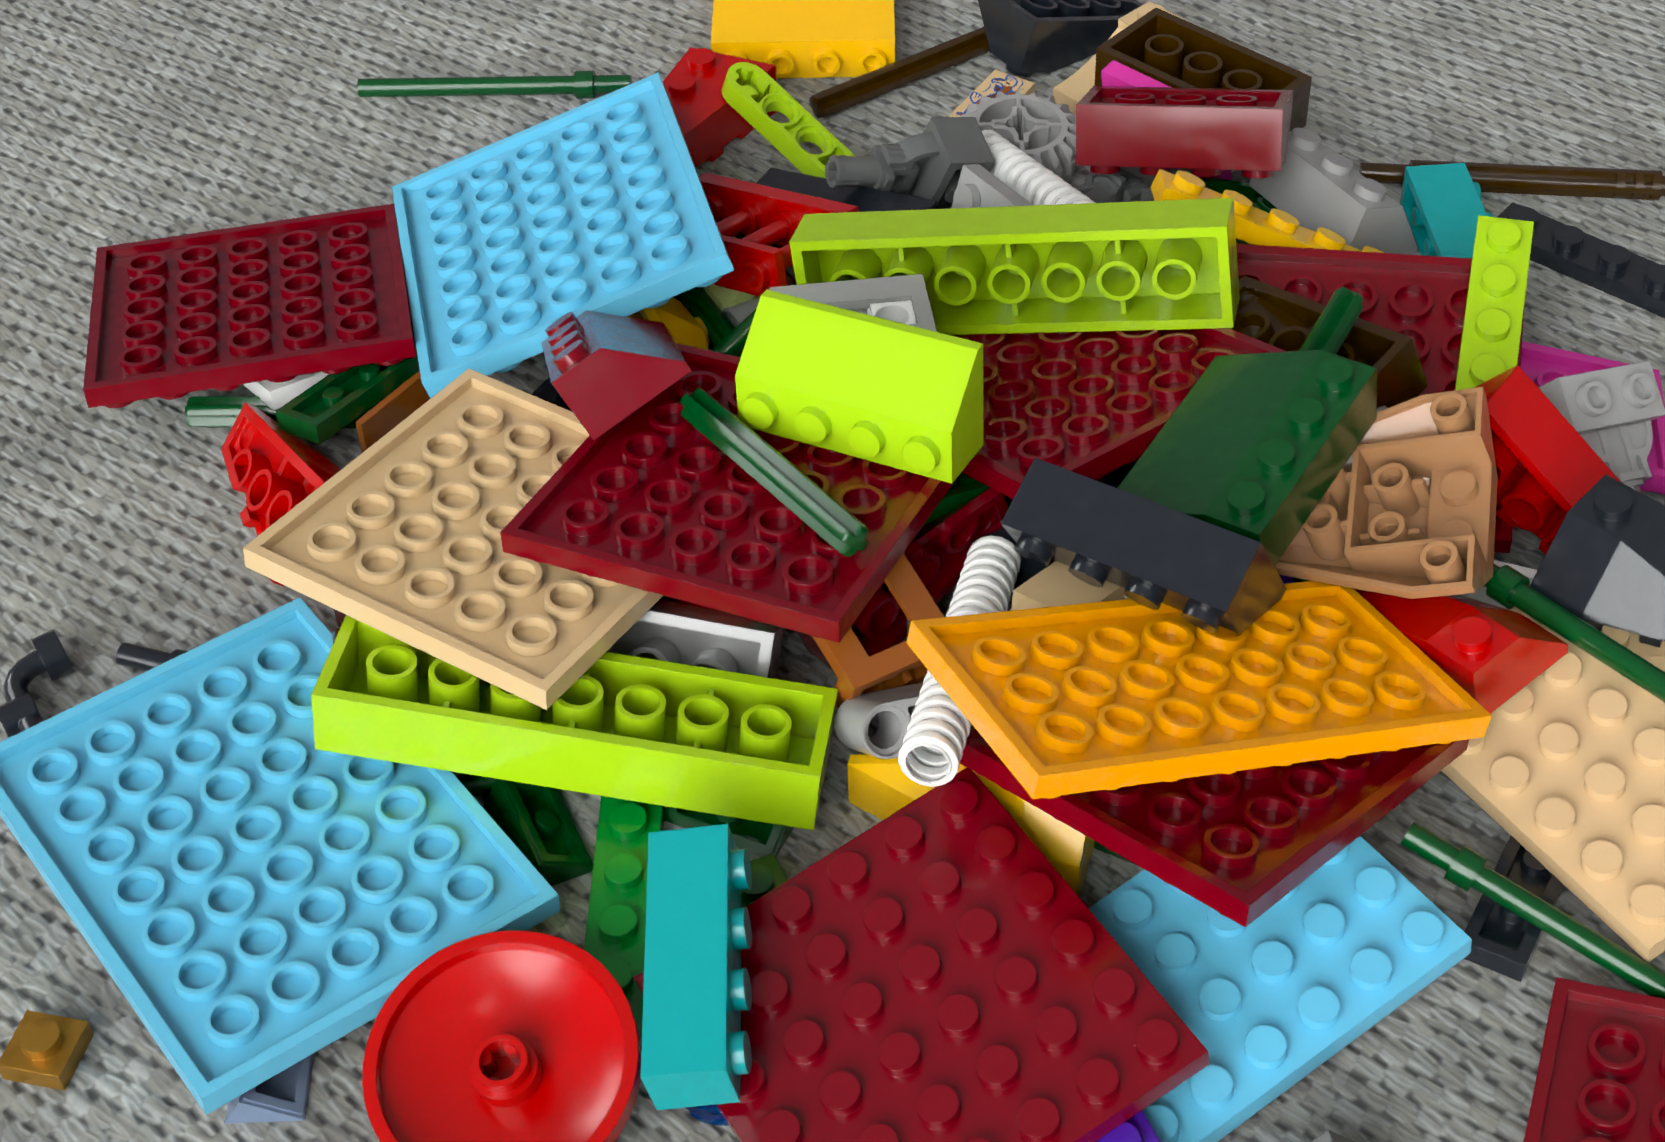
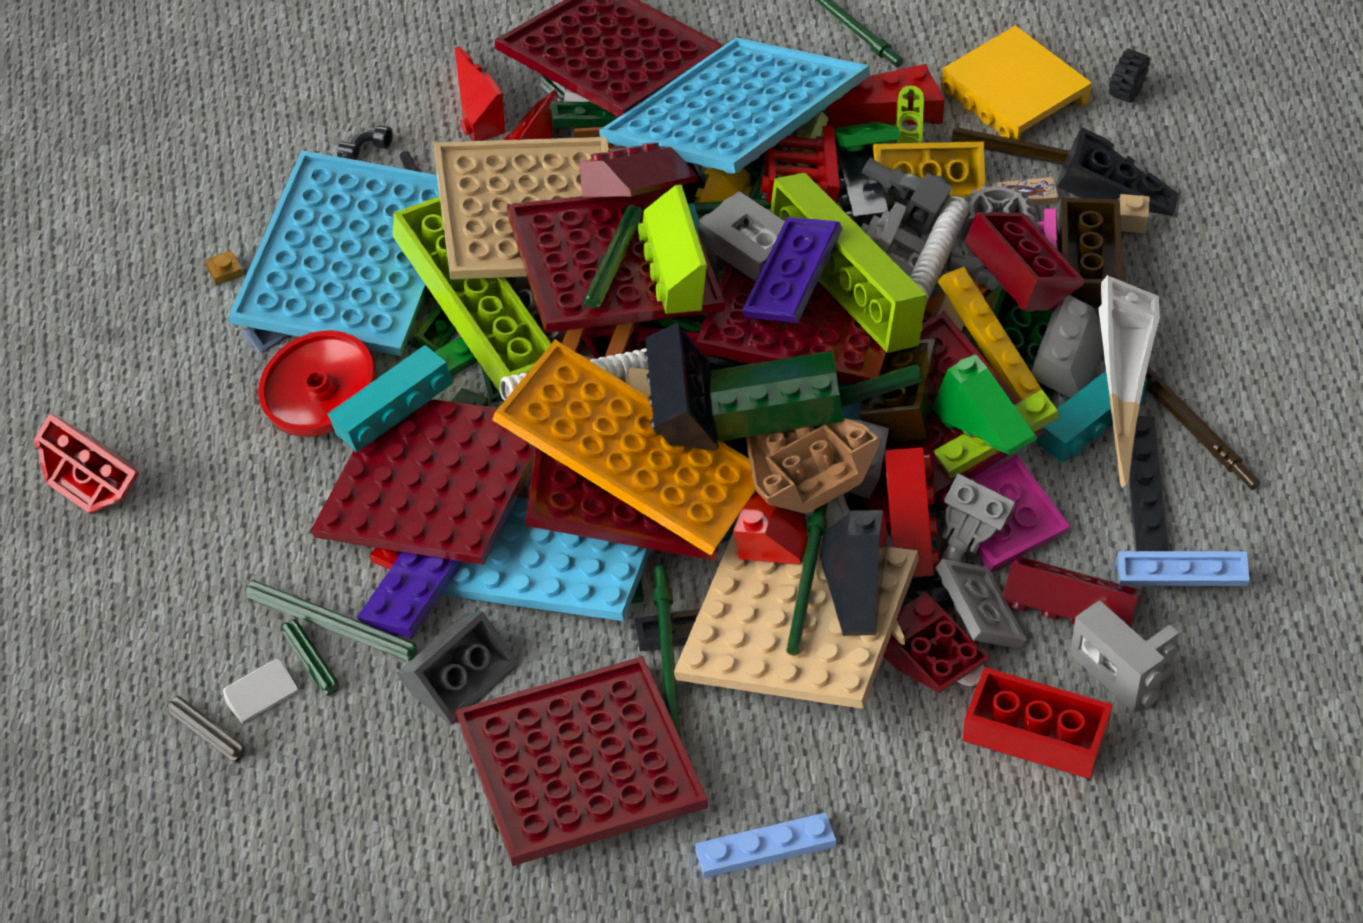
camera: 50 degrees right, 5 degrees up
(145, 490) = (479, 100): none -> red wedge
(763, 151) = (855, 136): none -> green plate
(881, 117) = (956, 162): none -> yellow wedge
(999, 294) = (792, 269): none -> dark purple tile
(1385, 128) = (1128, 333): none -> white plate
(1461, 282) = (980, 407): none -> green wedge

